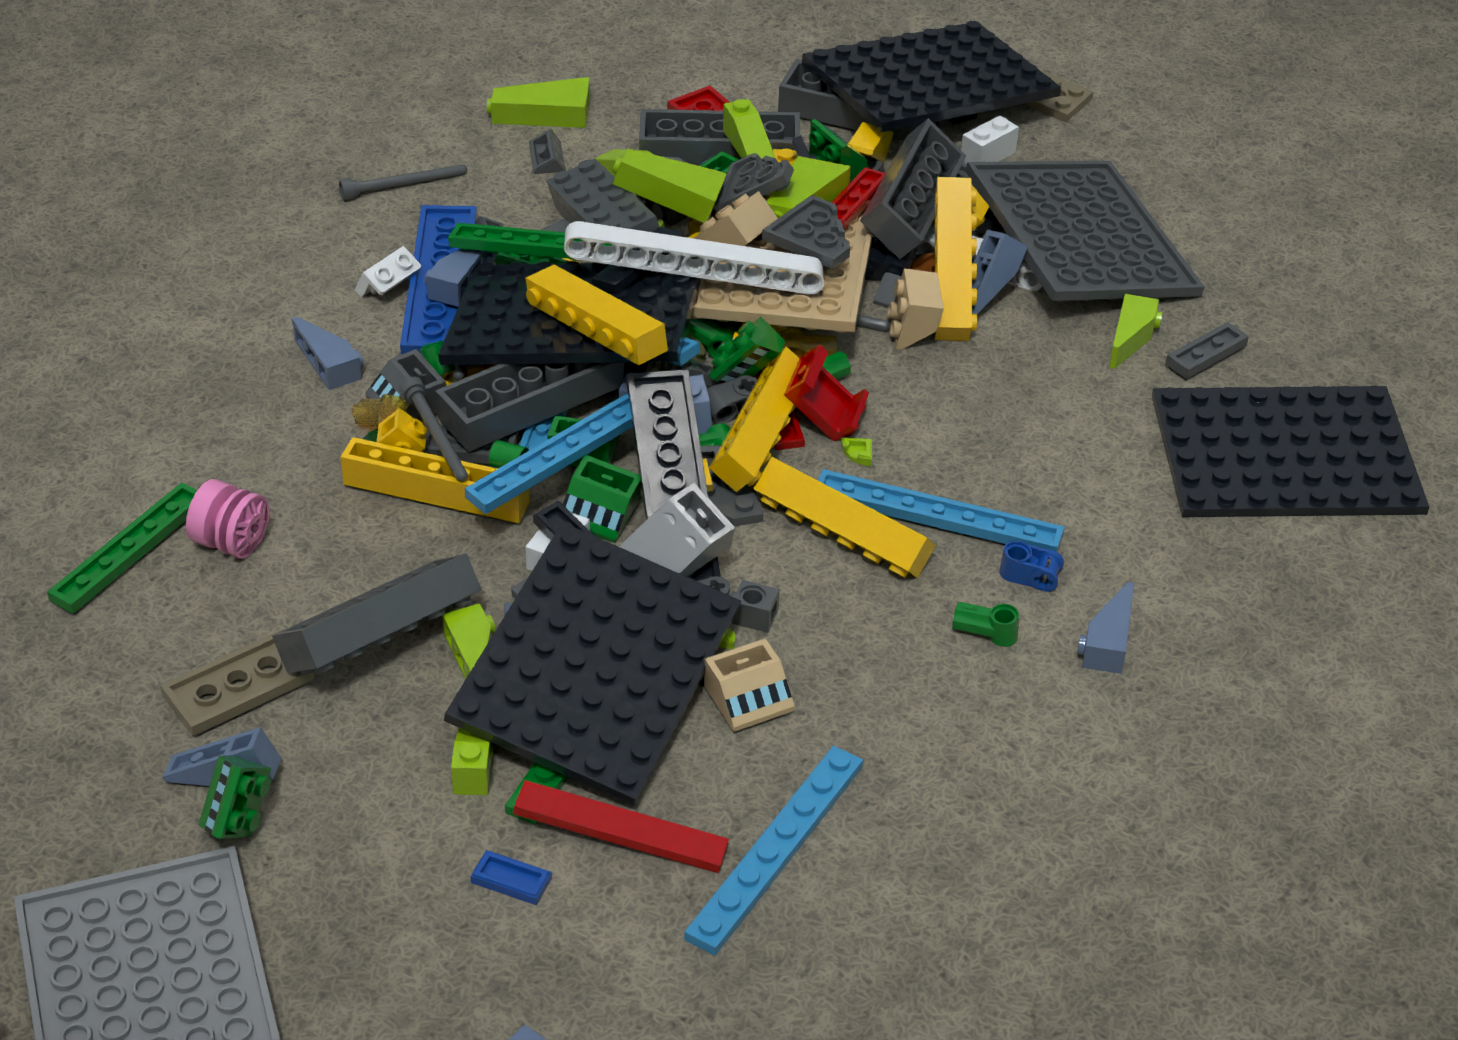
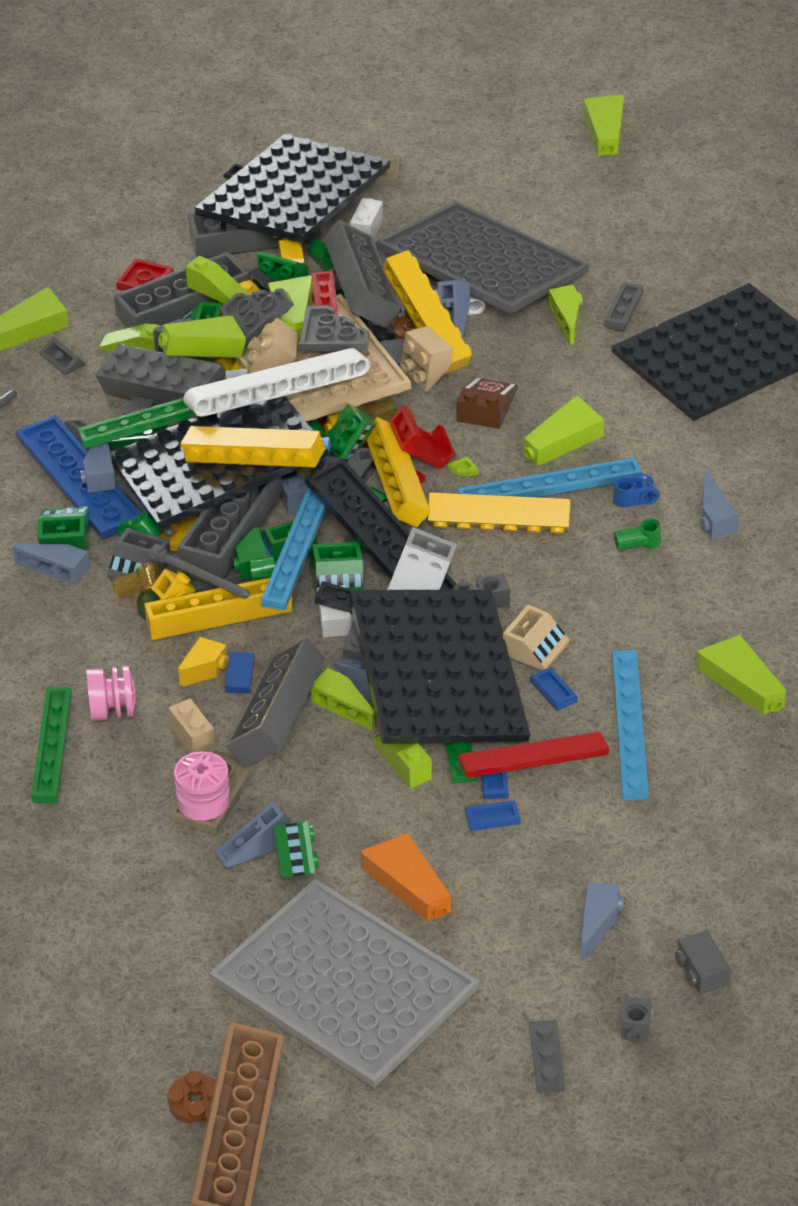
camera: 30 degrees left, 0 degrees up
(205, 669) = (202, 785): none -> bright pink wheel
(278, 598) = (191, 726): none -> tan brick
(341, 897) = (407, 875): none -> orange slope
(363, 533) = (203, 662): none -> yellow slope
(365, 323) = (65, 527): none -> green slope
(387, 273) = (43, 488): white bracket -> none
(397, 561) = (239, 672): none -> blue tile
(523, 429) = (249, 548): none -> green slope
(548, 842) = (495, 786): none -> blue tile
(724, 758) = (553, 689): none -> blue tile
(947, 387) = (485, 402): none -> reddish brown slope
(965, 854) = (742, 673): none -> lime slope
(1003, 460) = (563, 432): none -> lime slope
(1361, 144) = (604, 122): none -> lime slope

